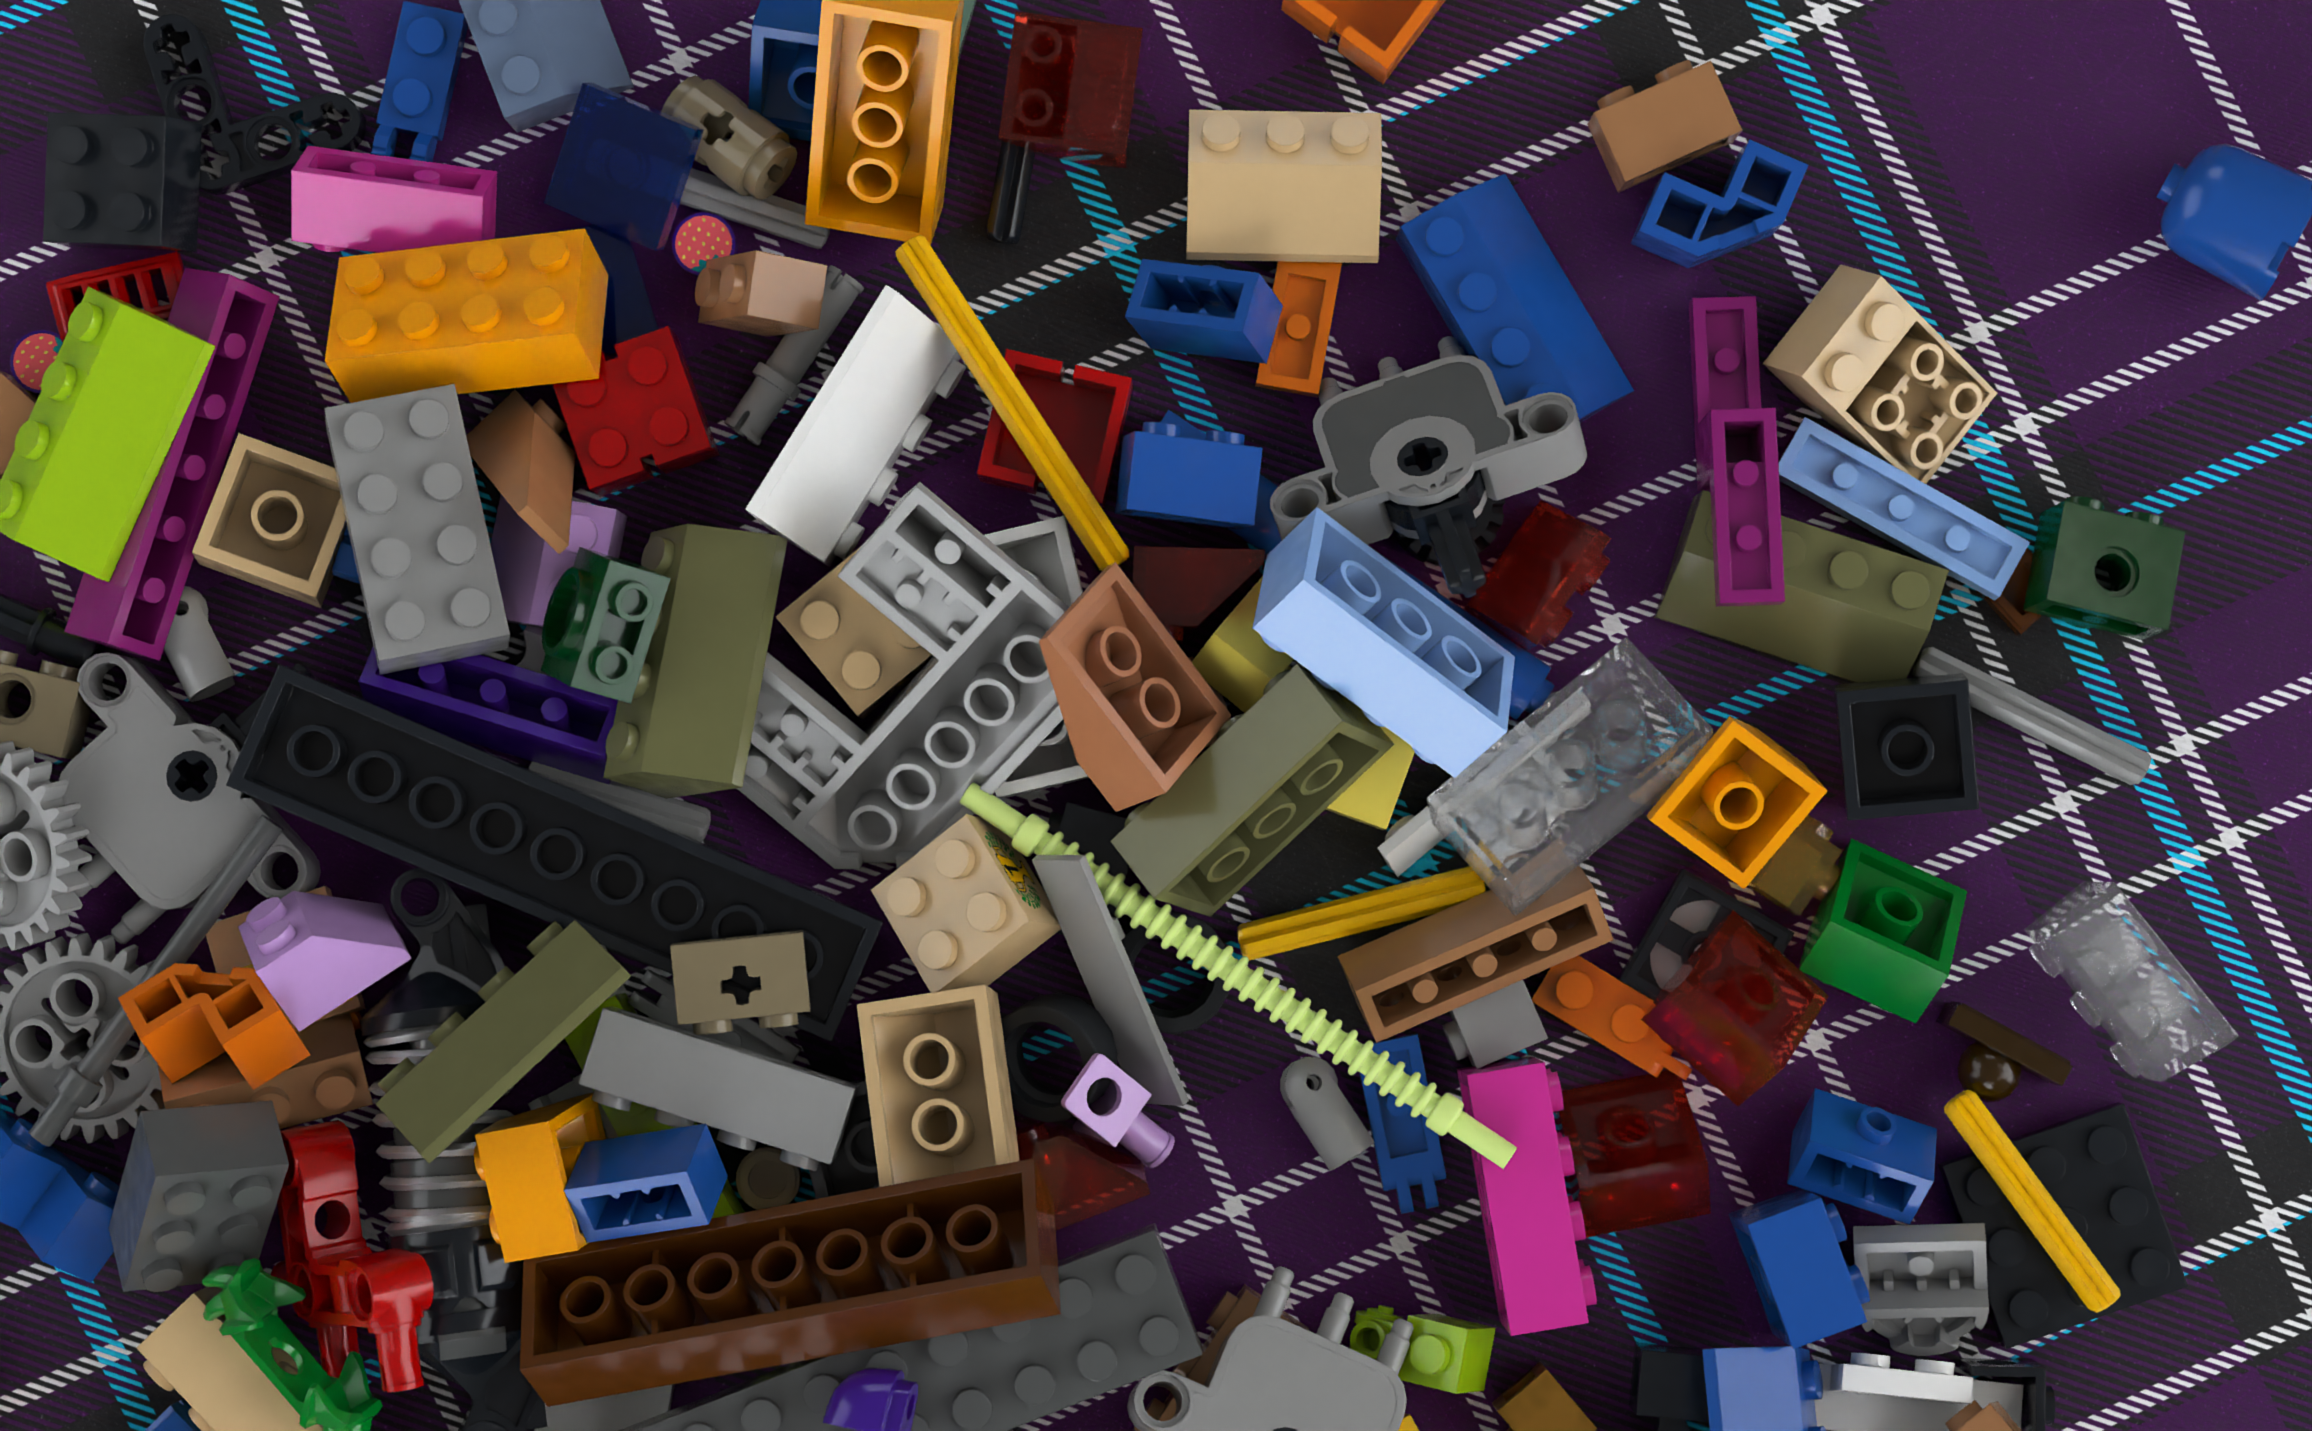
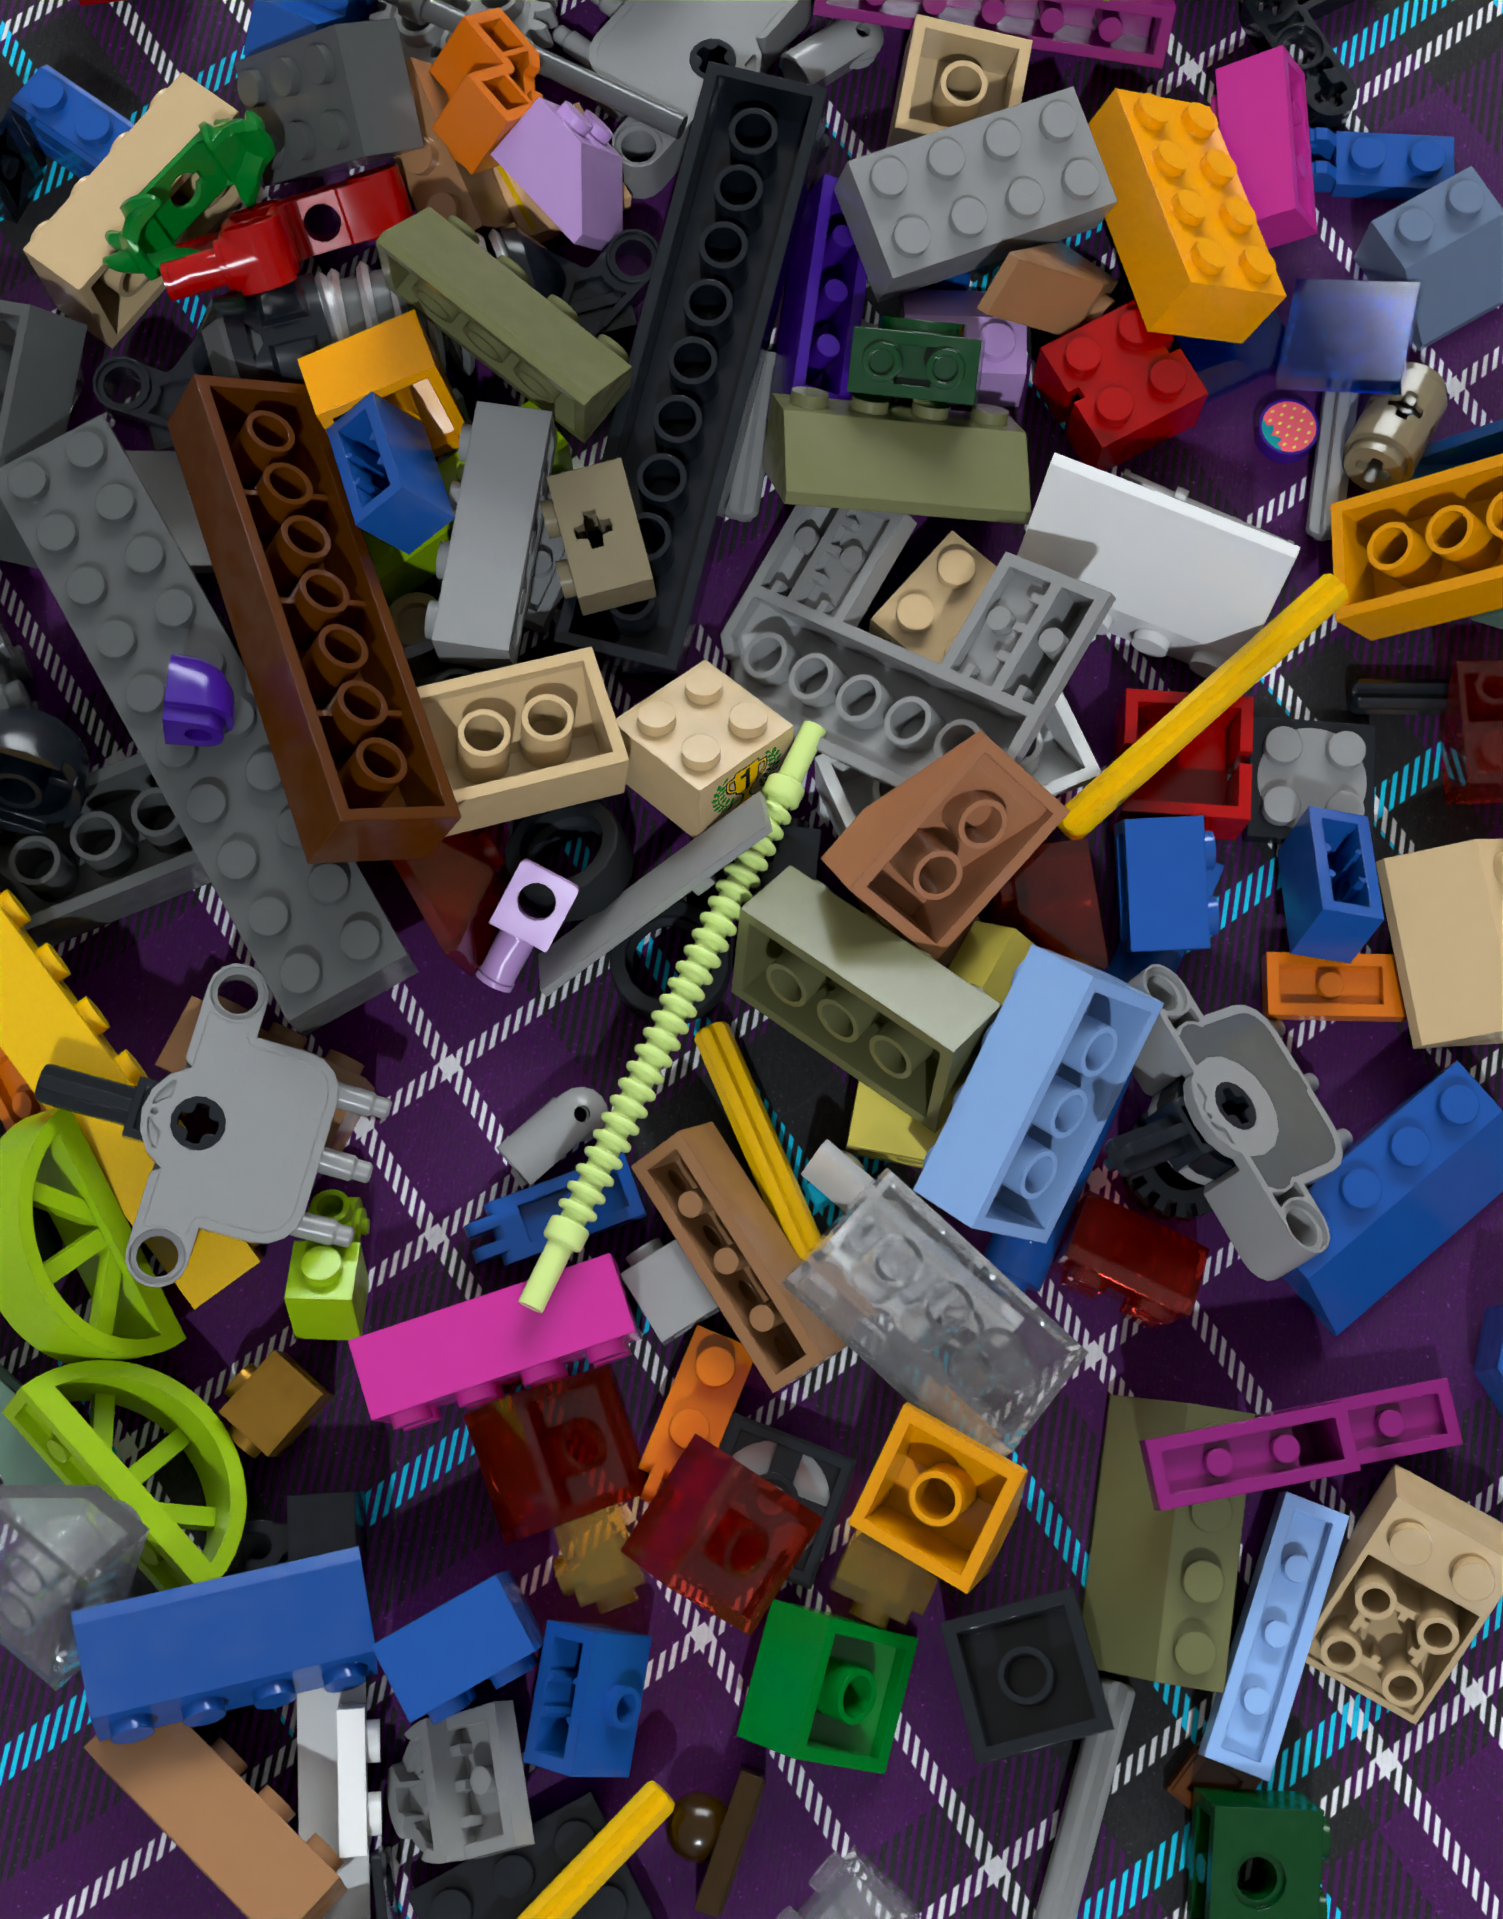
camera: 80 degrees right, 10 degrees down
(761, 293) = (1257, 468): medium nougat brick -> none
(1079, 301) = (1306, 766): none -> light grey piece
(1739, 1133) = (593, 1560): none -> clear yellow brick

